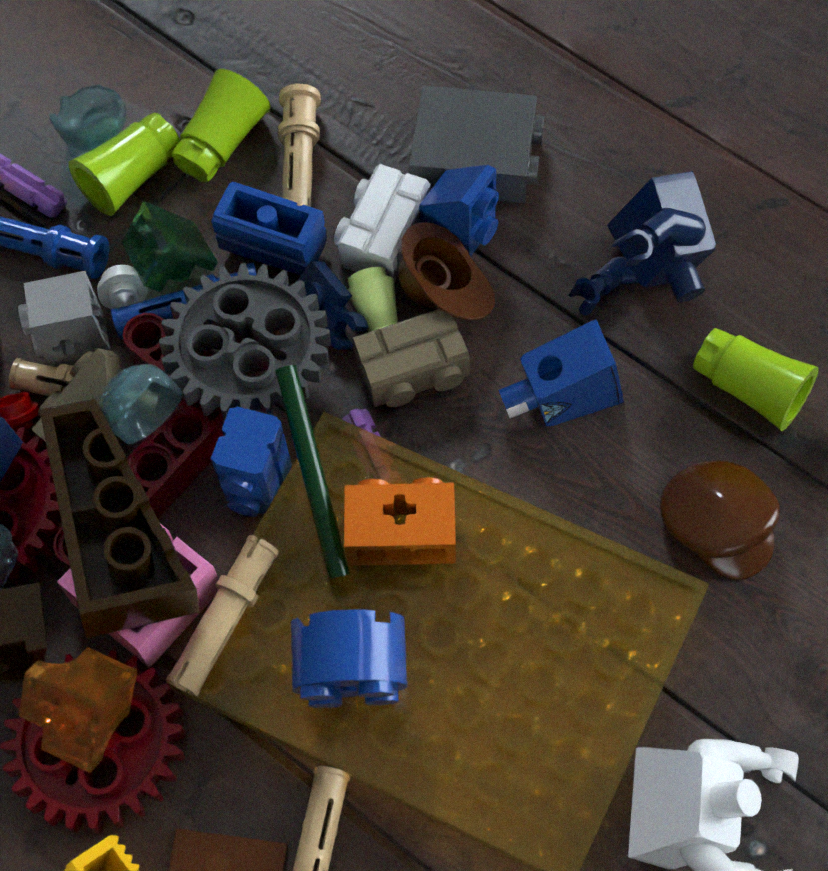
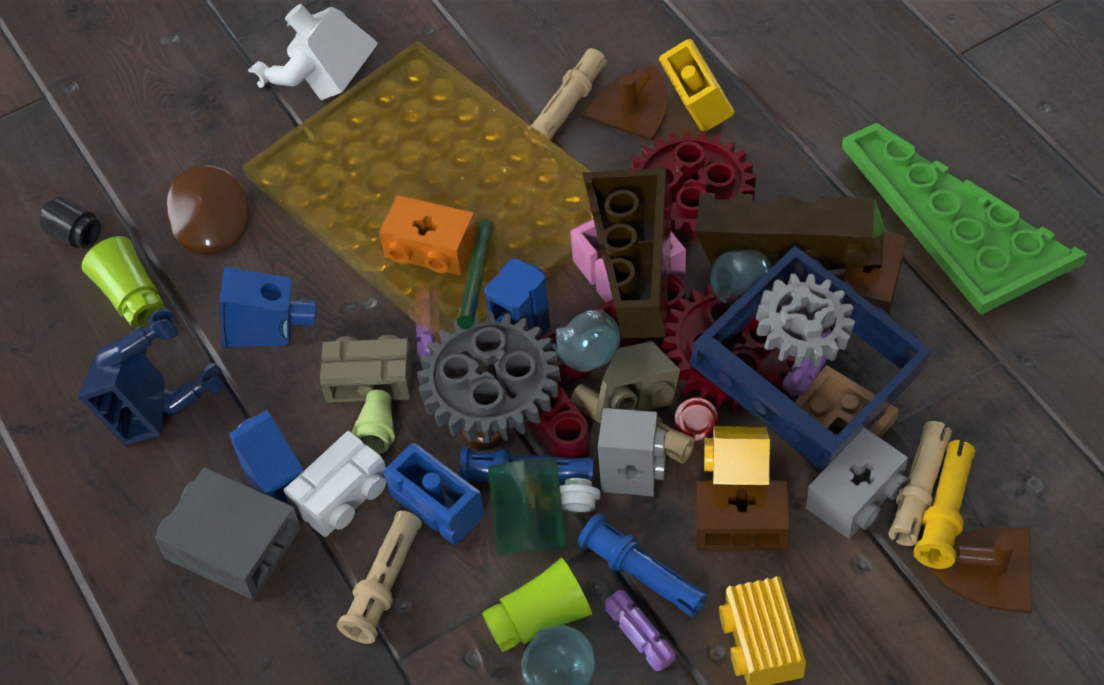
camera: 160 degrees left, 10 degrees down
(78, 705) = (687, 164): clear orange brick -> none
(218, 623) = (558, 229): tan pin -> none
(219, 124) = (440, 617): lime plant -> none
(332, 299) = (412, 426): dark blue plate -> none
(347, 657) = (498, 152): blue brick -> none
(441, 273) = (310, 411): reddish brown piece -> none

